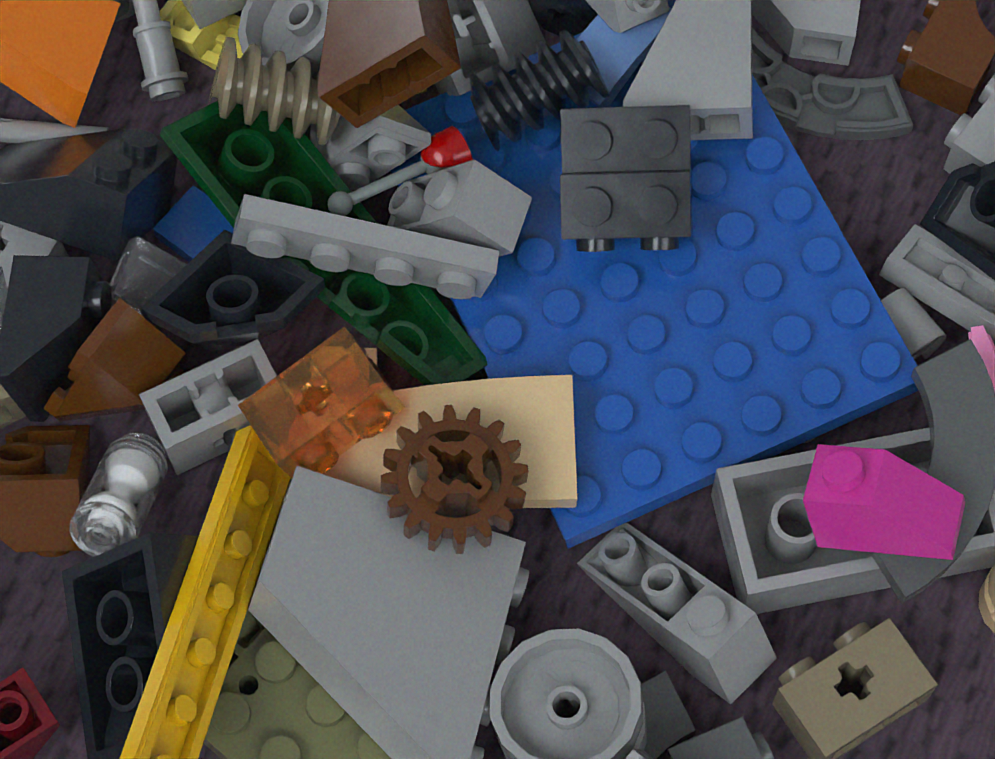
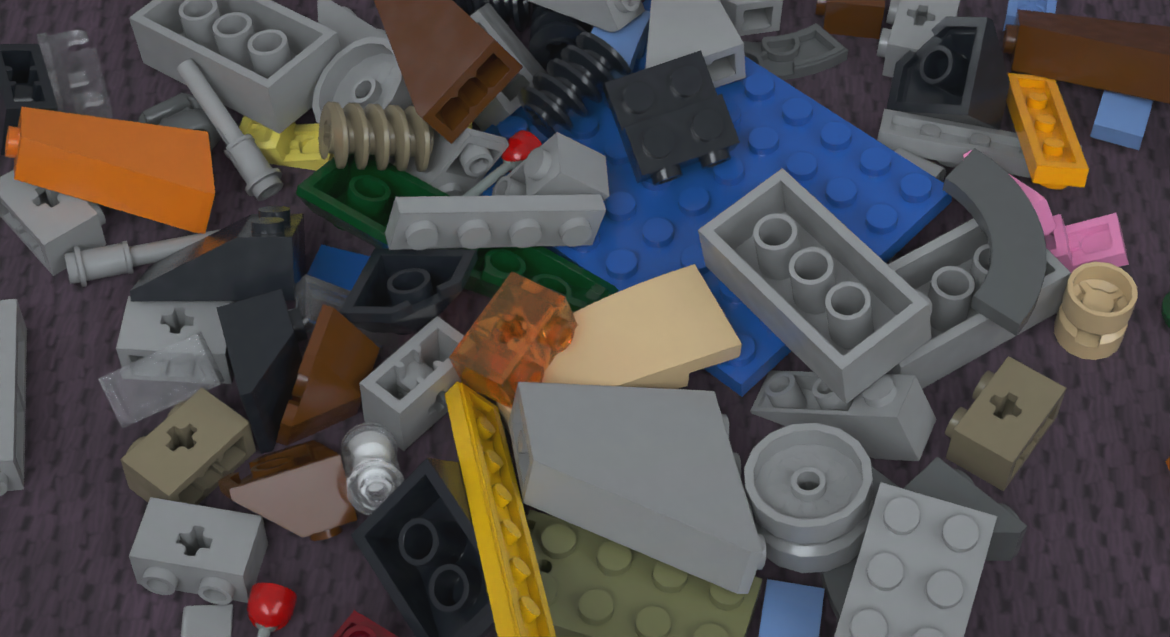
camera: 25 degrees left, 15 degrees down
(469, 454) = (646, 351): reddish brown gear -> none
(681, 464) = (815, 285): none -> light grey brick
(880, 504) = (973, 263): dark pink slope -> none

